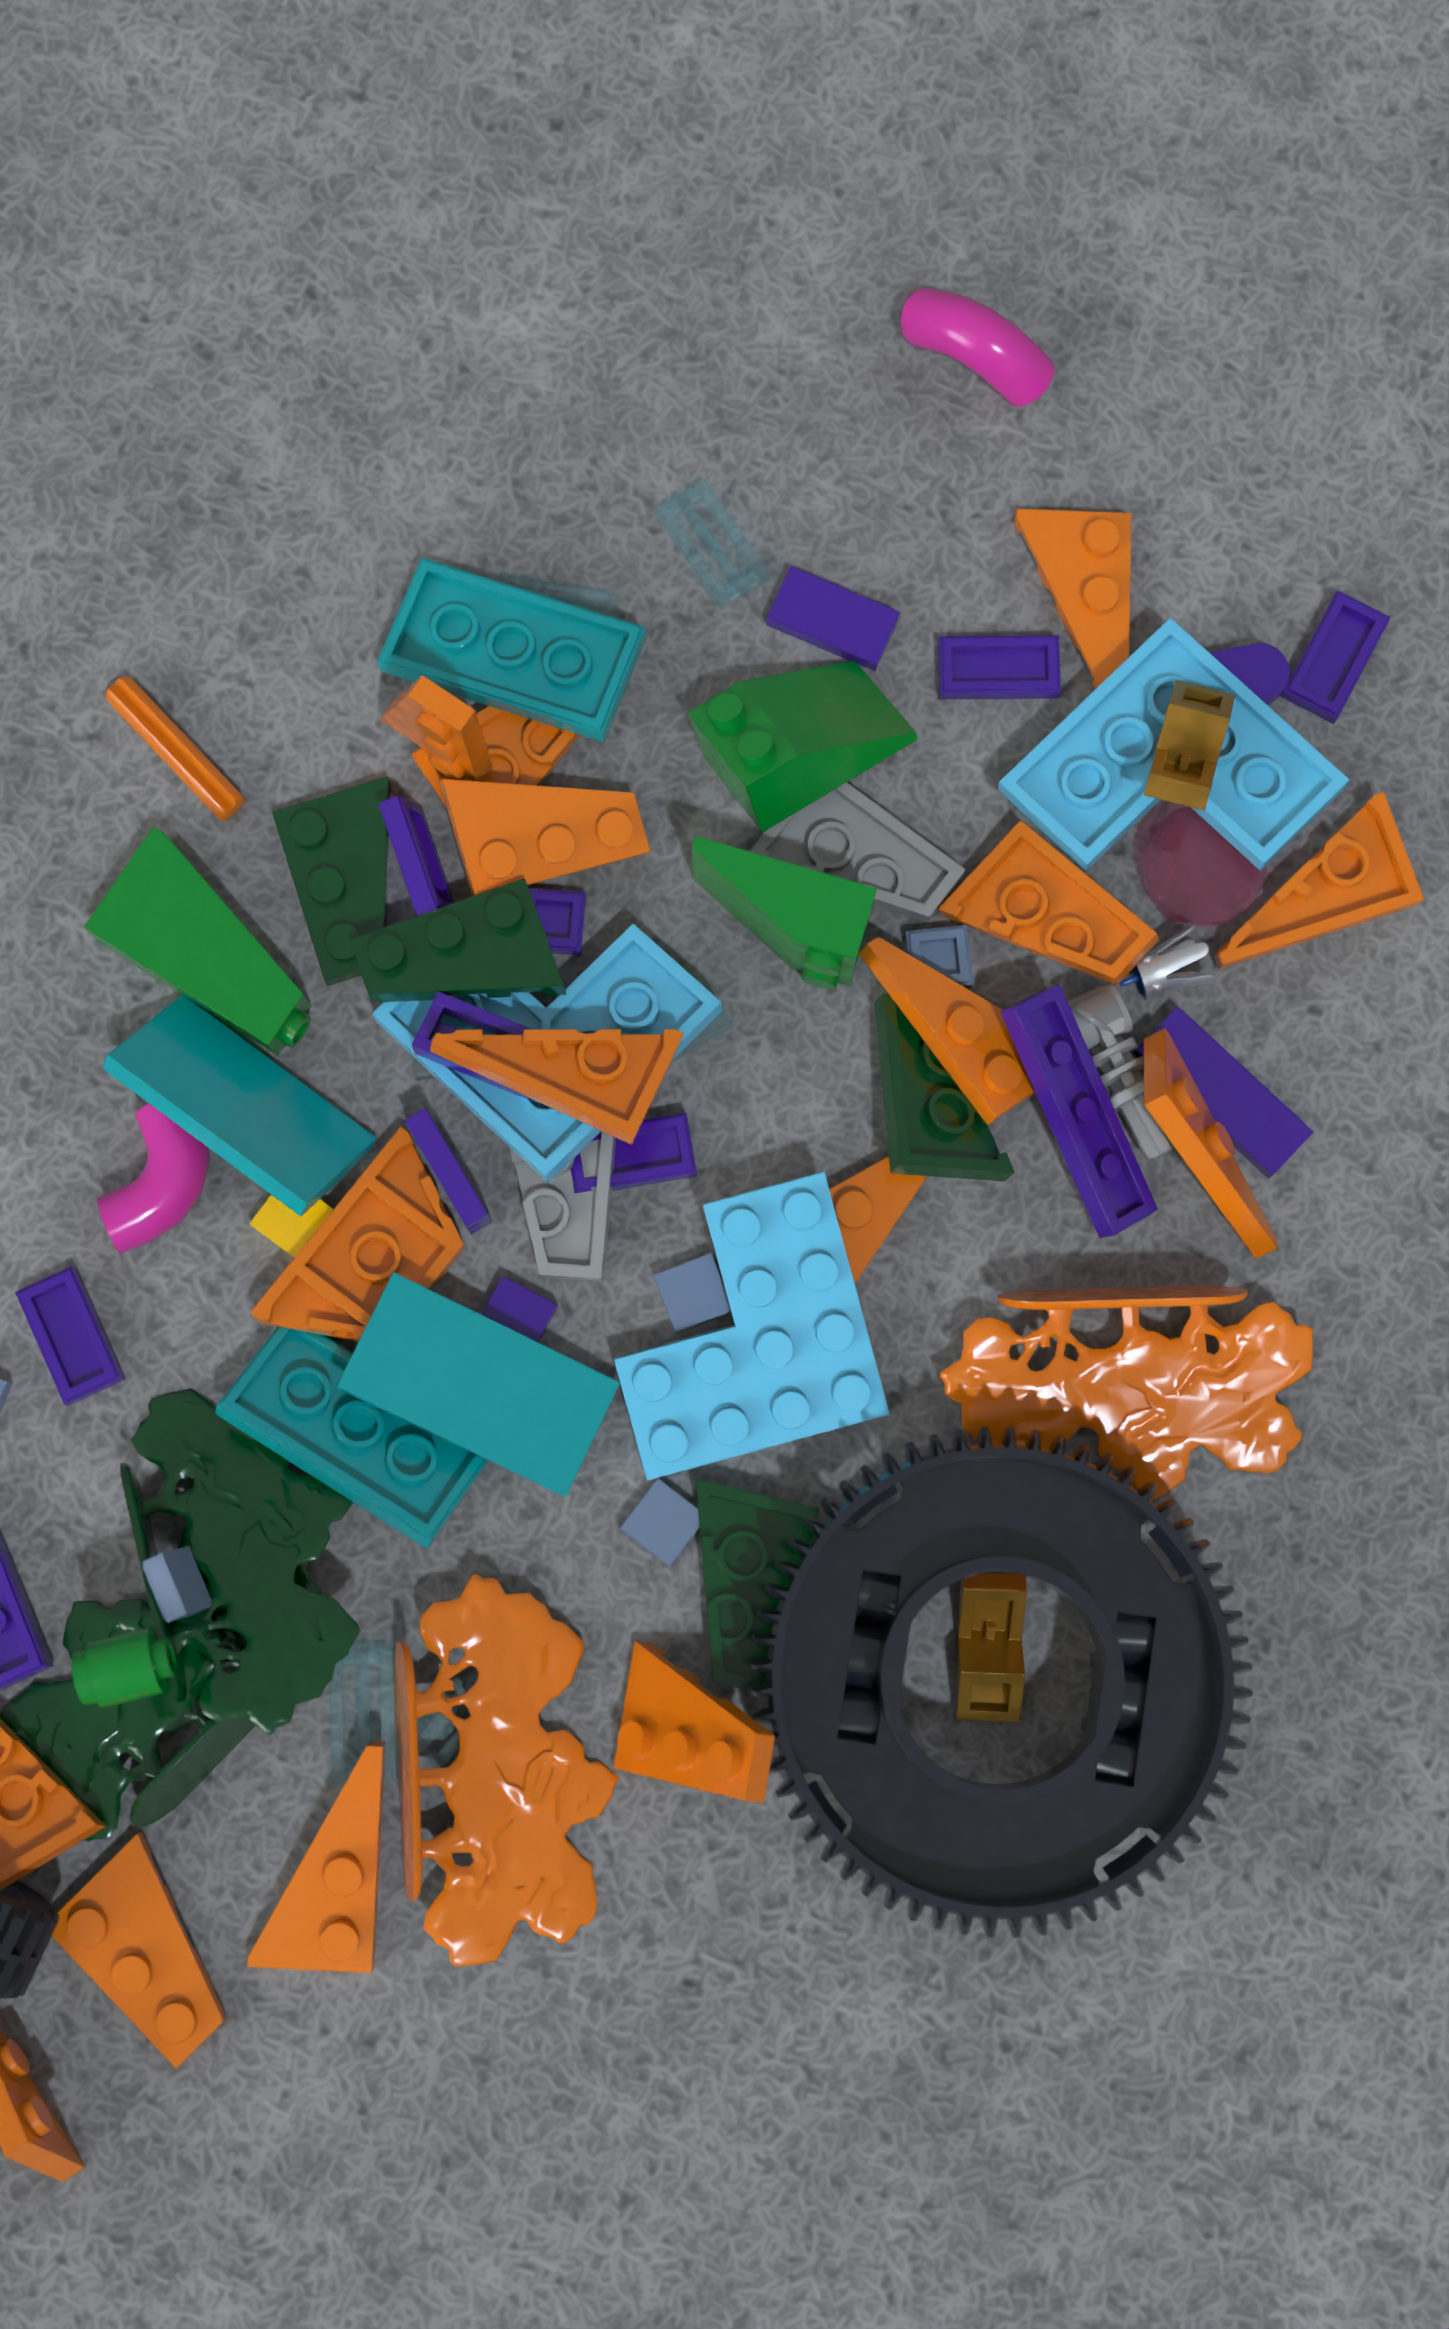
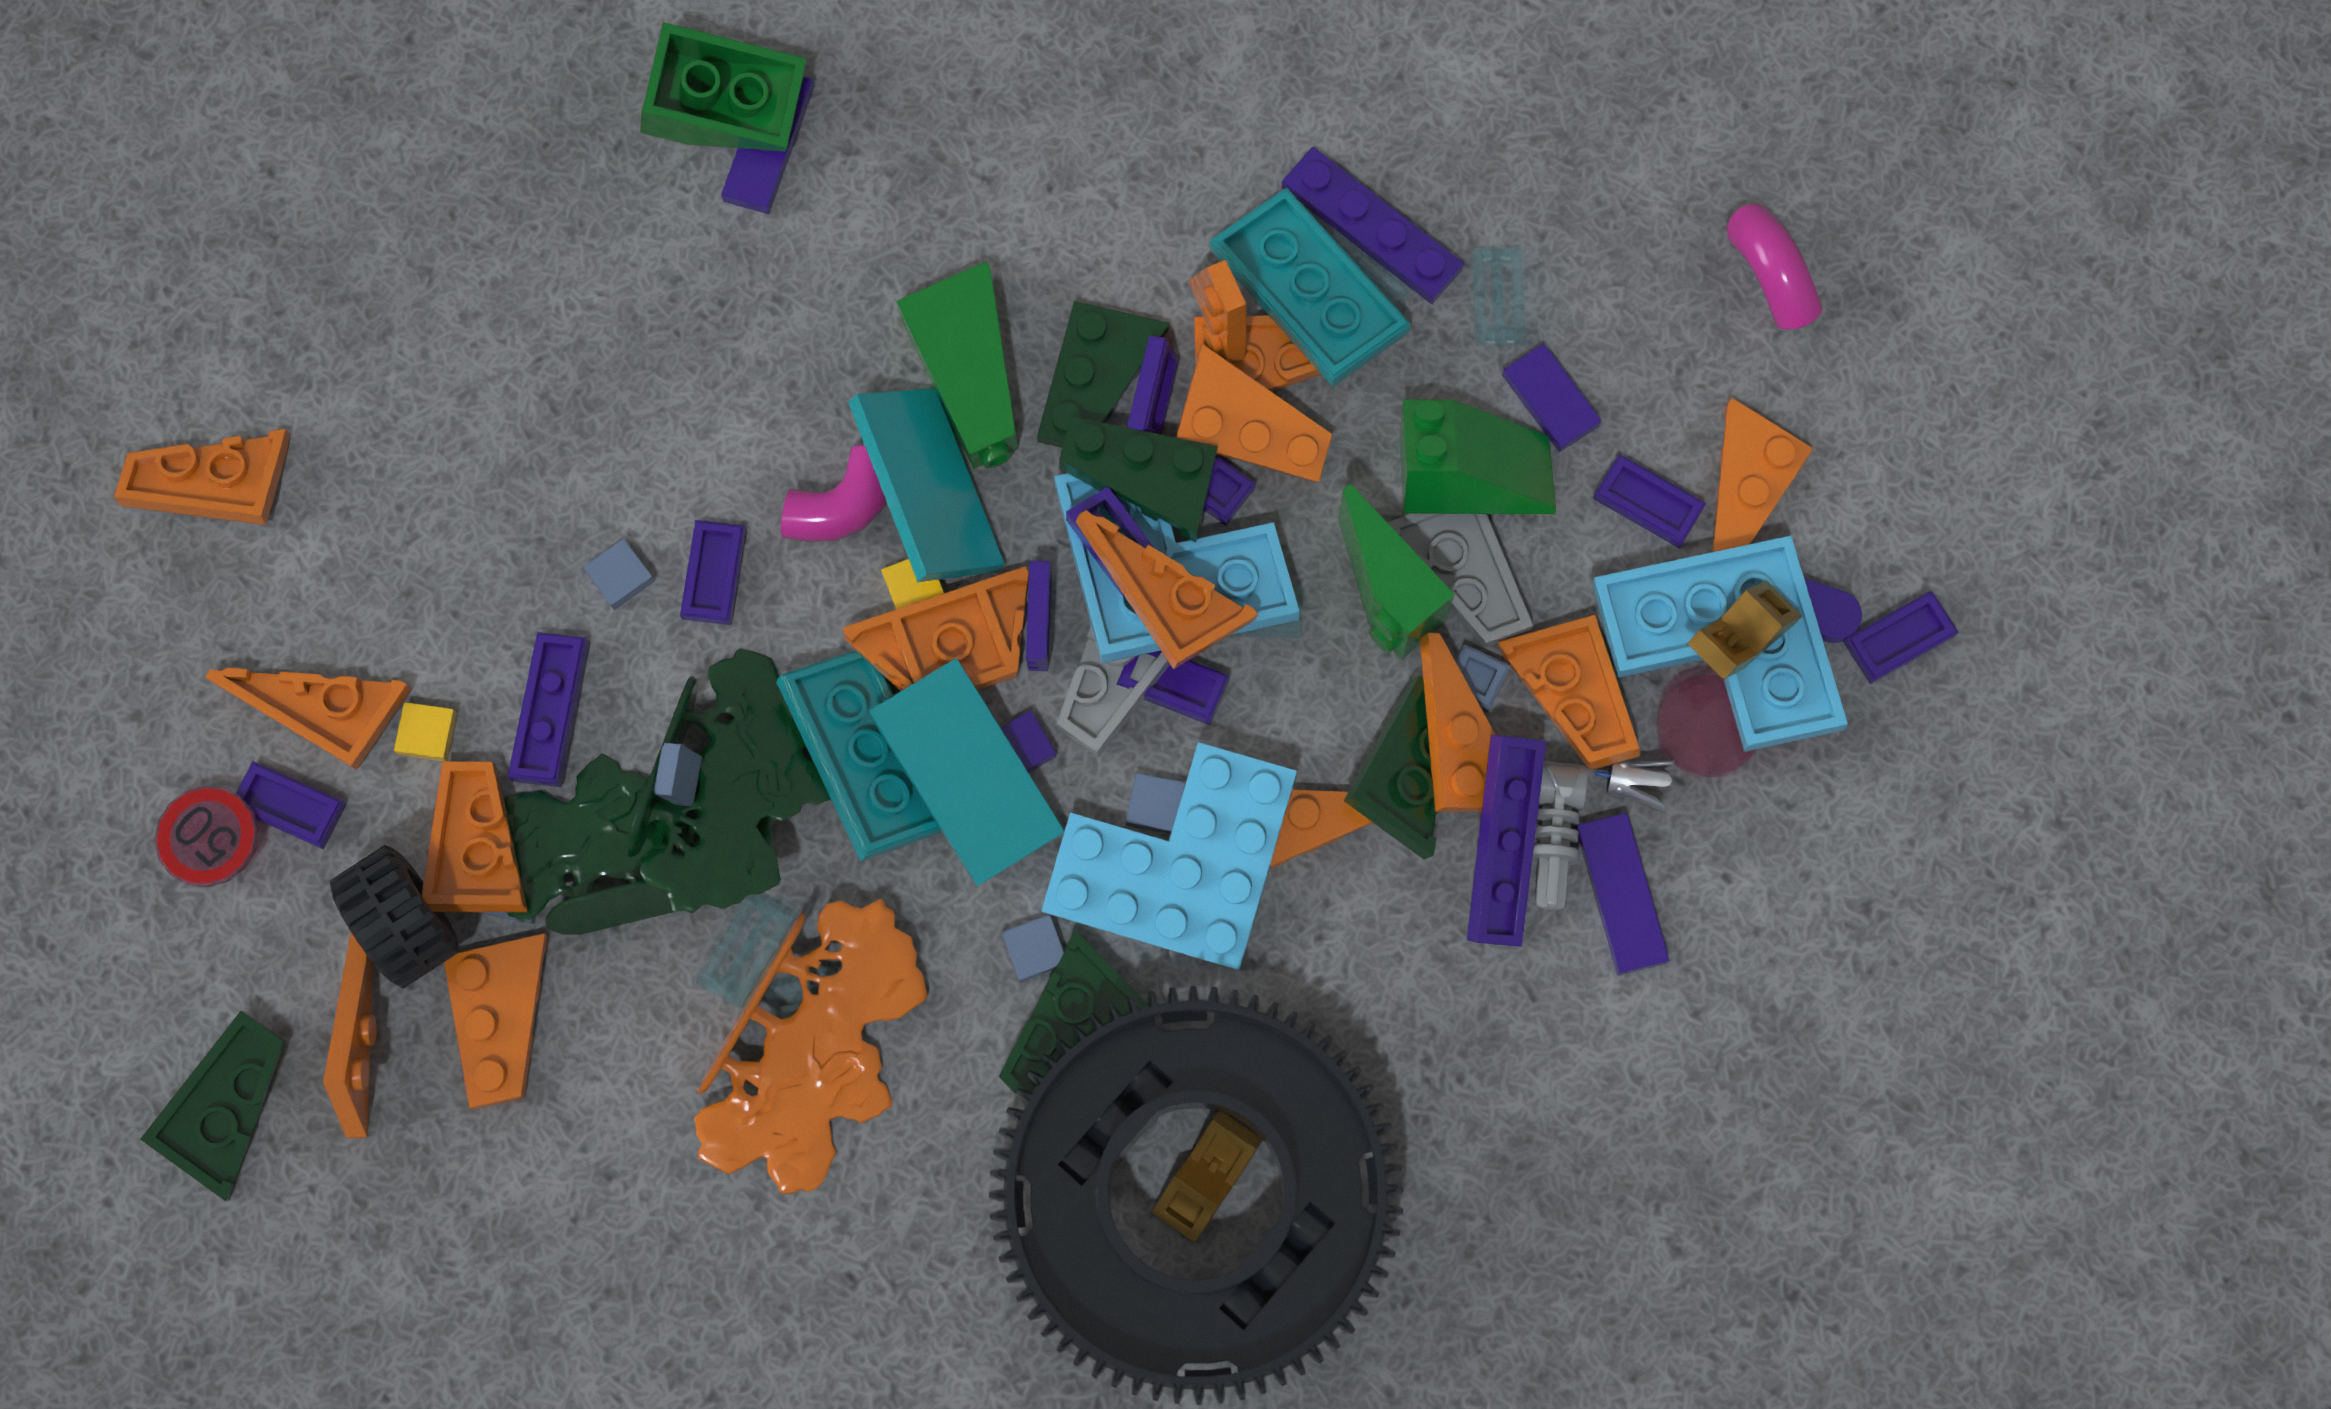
camera: 35 degrees right, 5 degrees down
(123, 1668) = (606, 804): green brick -> none
(174, 748) = (1035, 219): orange axle -> none
(332, 1899) = (647, 1059): orange wing -> none
(534, 545) = (1372, 225): none -> dark purple plate
(687, 1734) = (957, 1095): orange wing -> none
(1148, 1392) = (1431, 1069): orange plant -> none
(1201, 1141) = (1578, 893): orange wing -> none
(1348, 882) = (1805, 801): orange wing -> none

